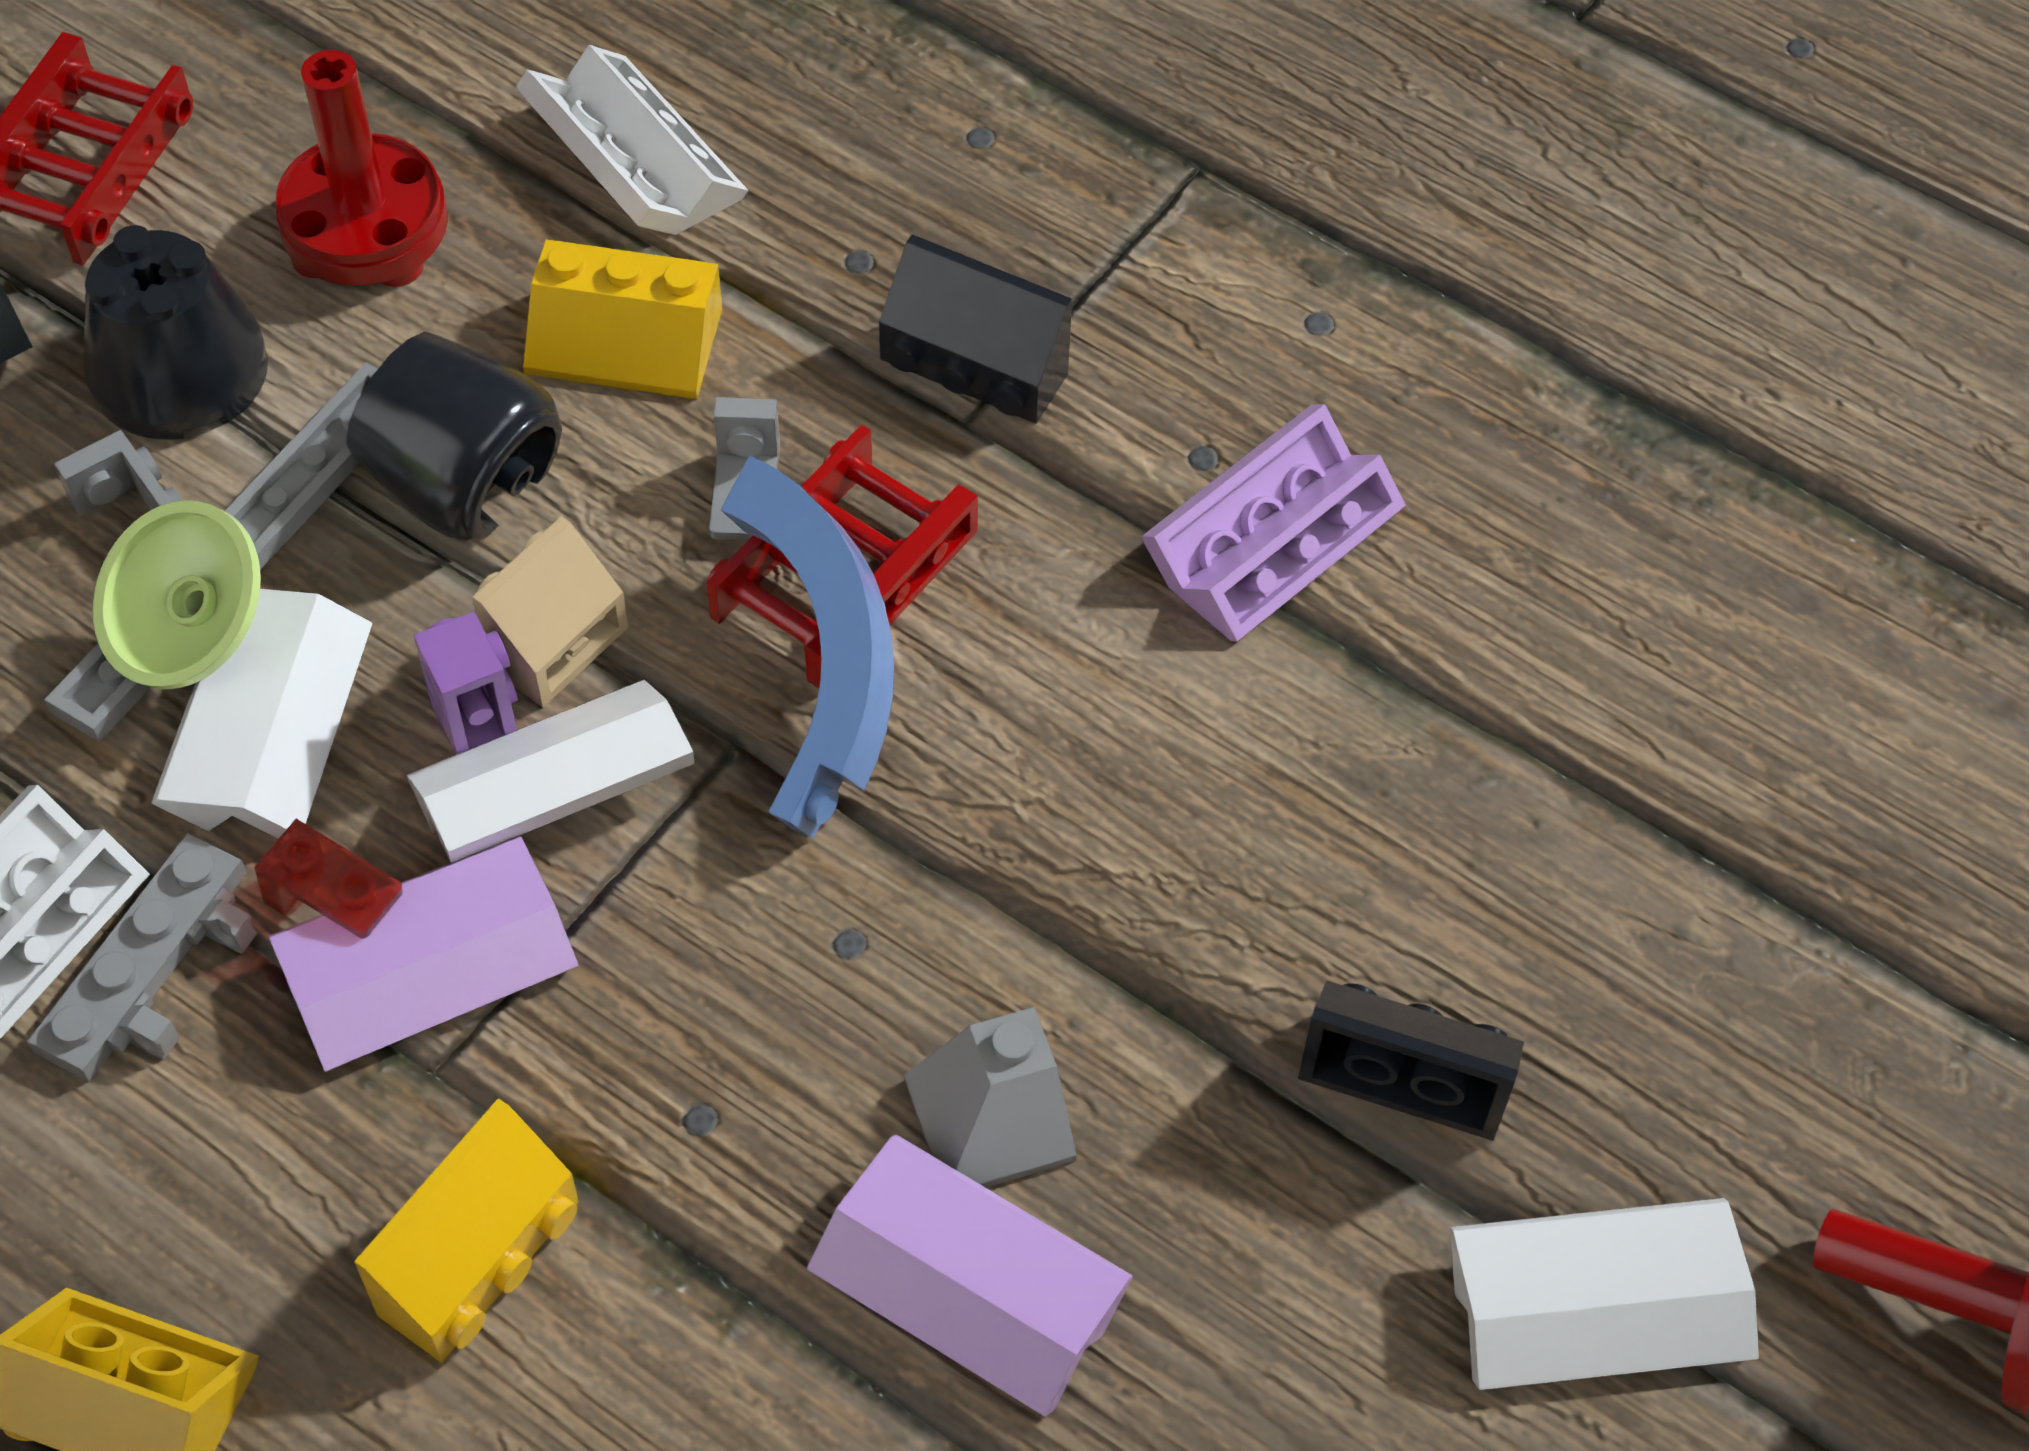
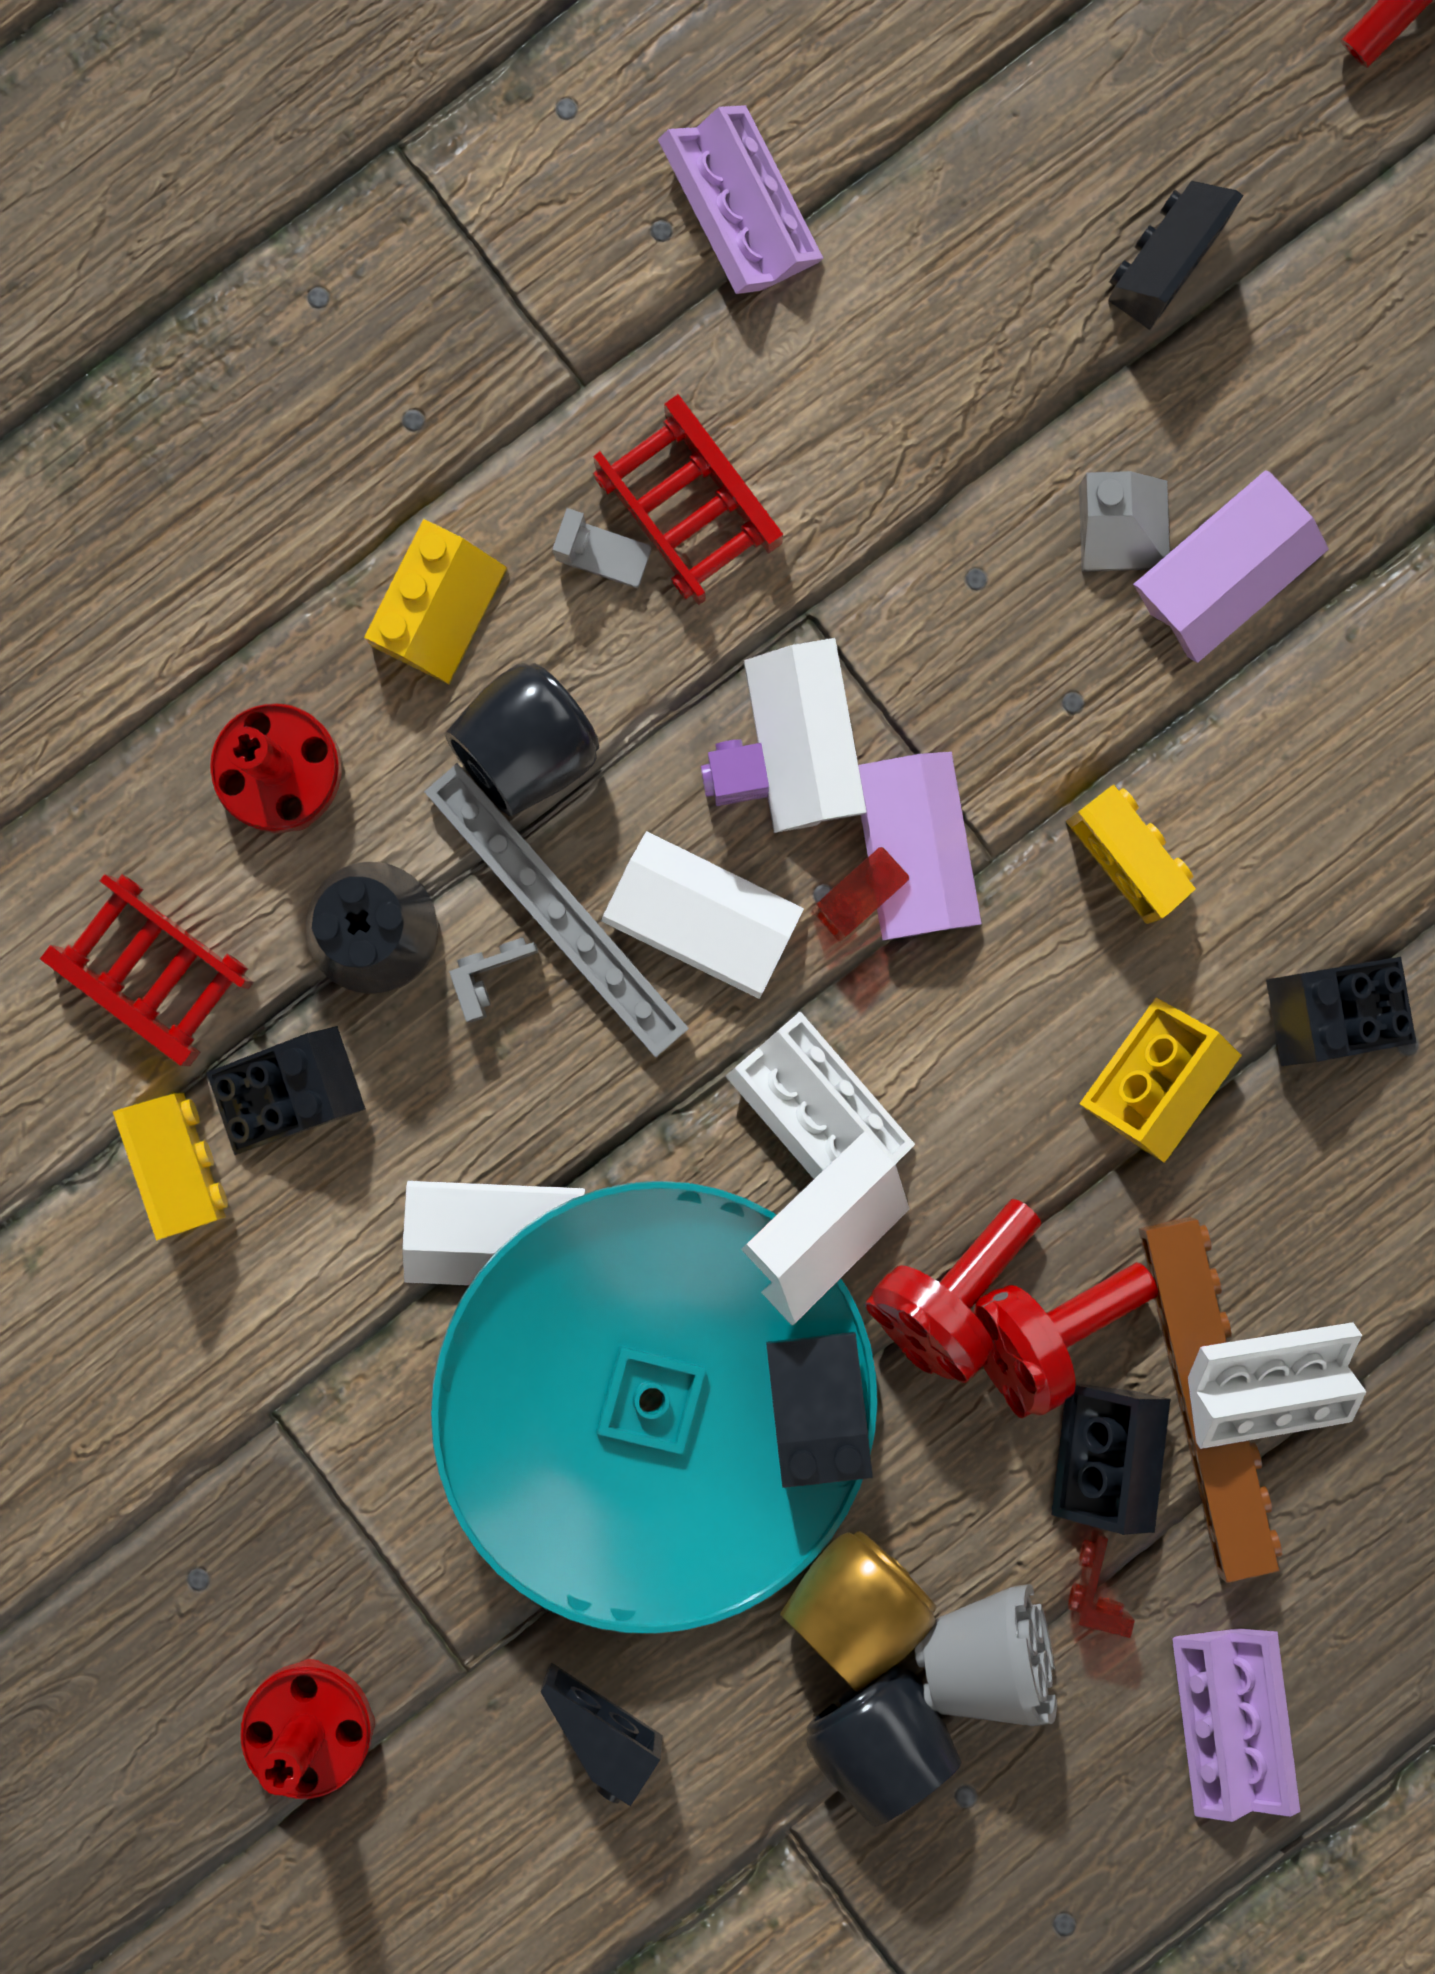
camera: 70 degrees left, 30 degrees up
(115, 989) = (887, 1049): light grey hinge -> none
(176, 594) = (626, 973): yellowish green dish -> none
(551, 611) = (691, 707): tan slope -> none
(633, 142) = (257, 555): white slope -> none
(853, 639) = (749, 504): medium blue arch -> none
(976, 329) = (531, 354): black slope -> none
(1604, 1293) = (1351, 196): white slope -> none

